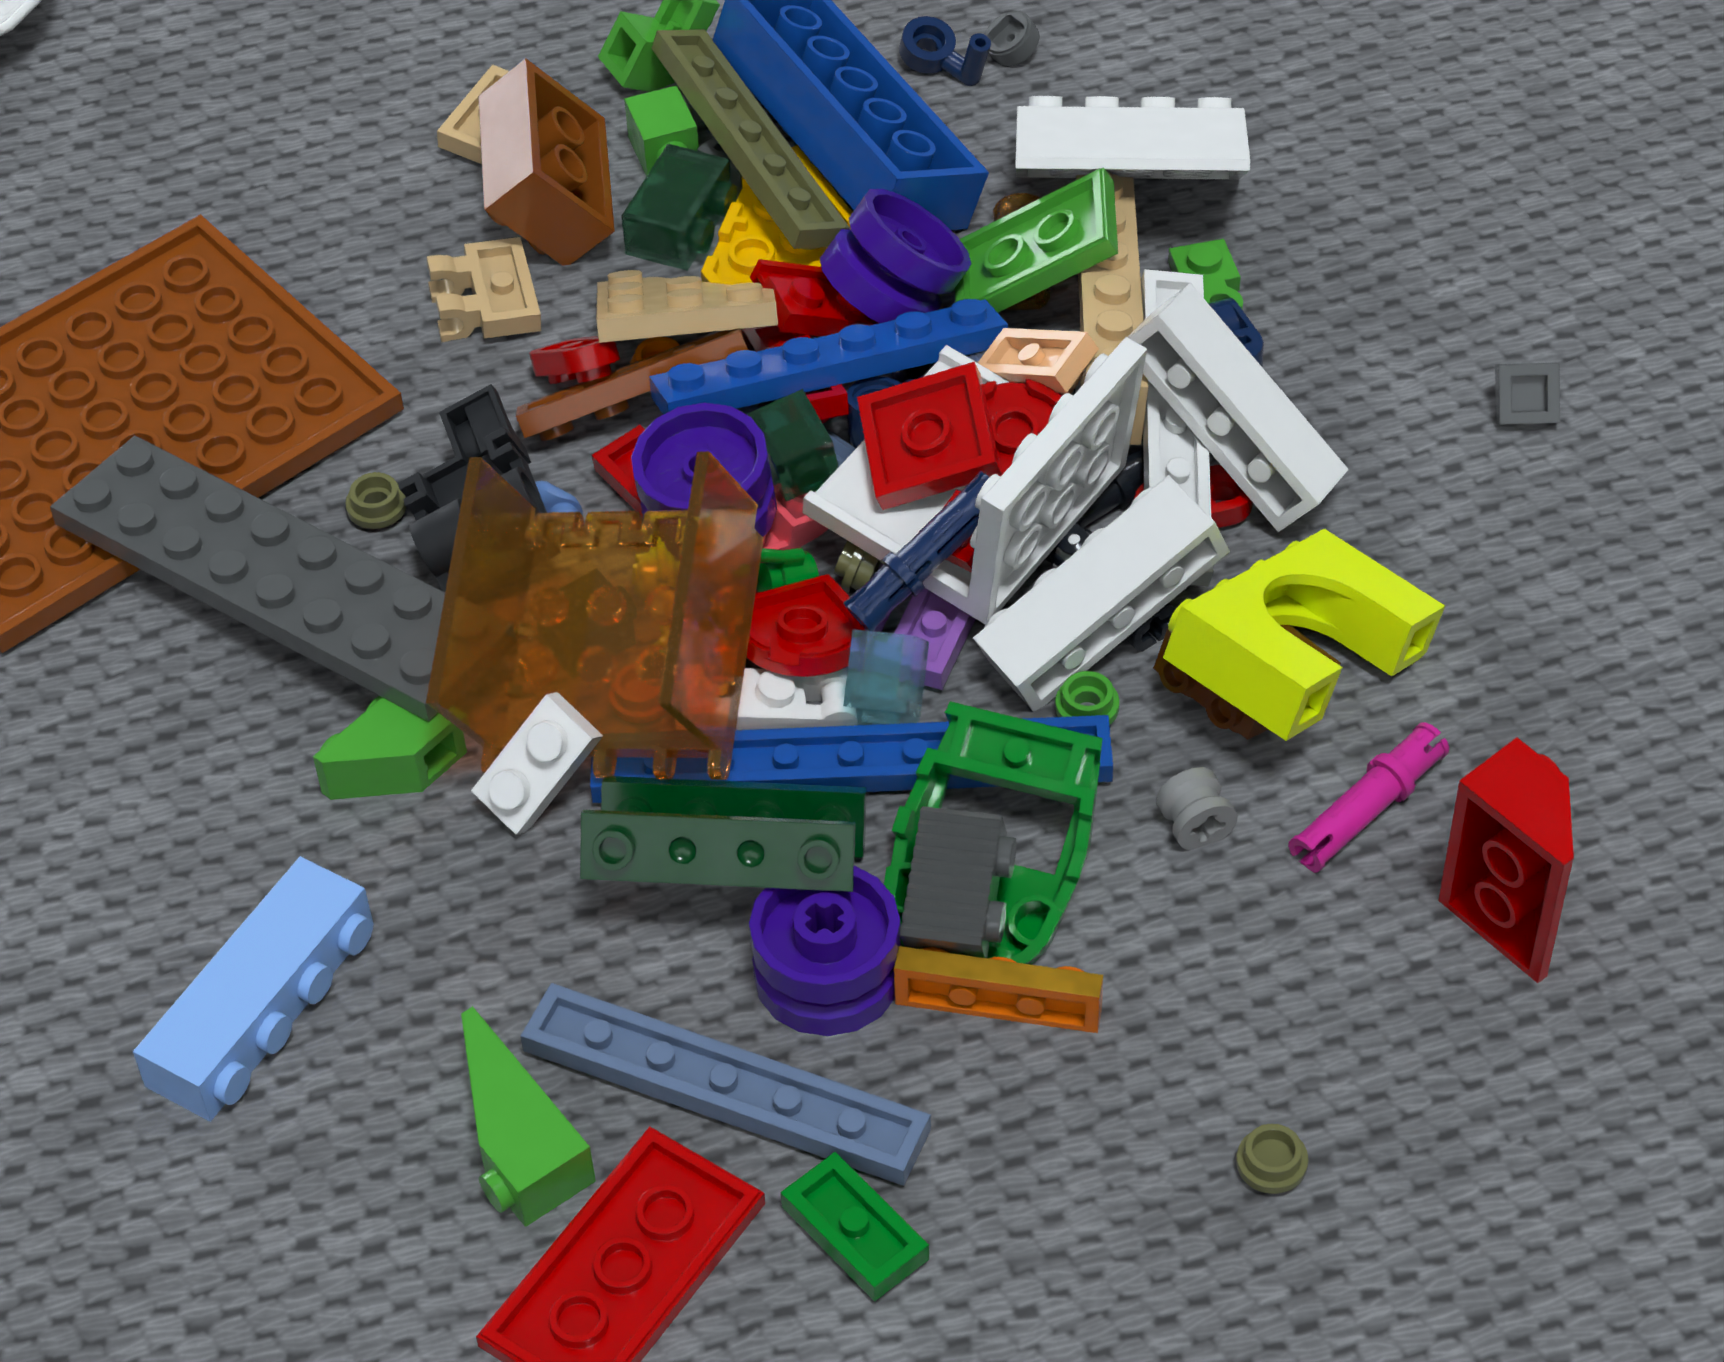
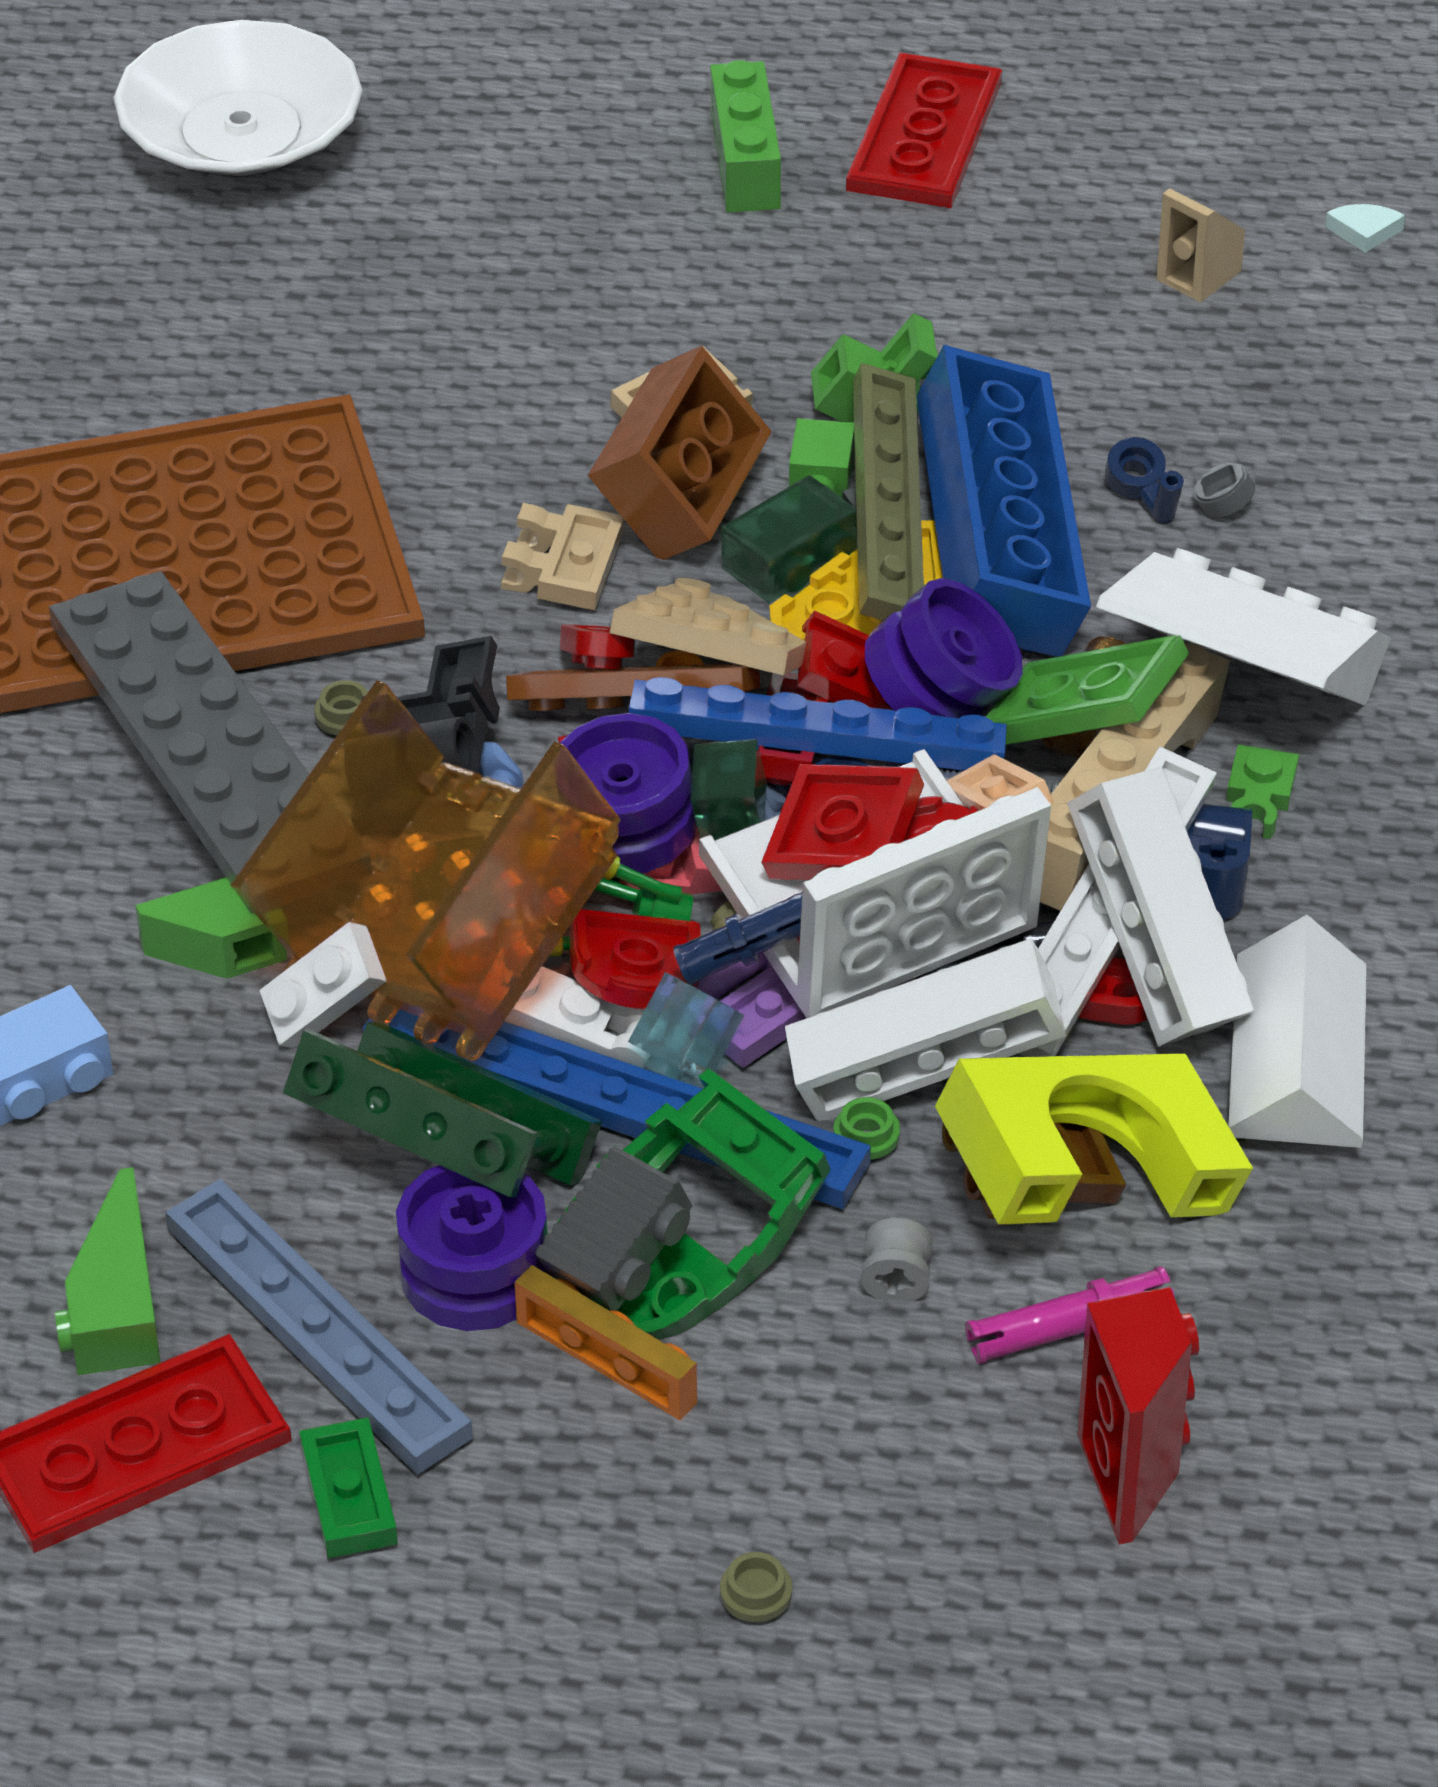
camera: 25 degrees right, 5 degrees down
(1397, 491) = (1304, 1044): none -> white slope

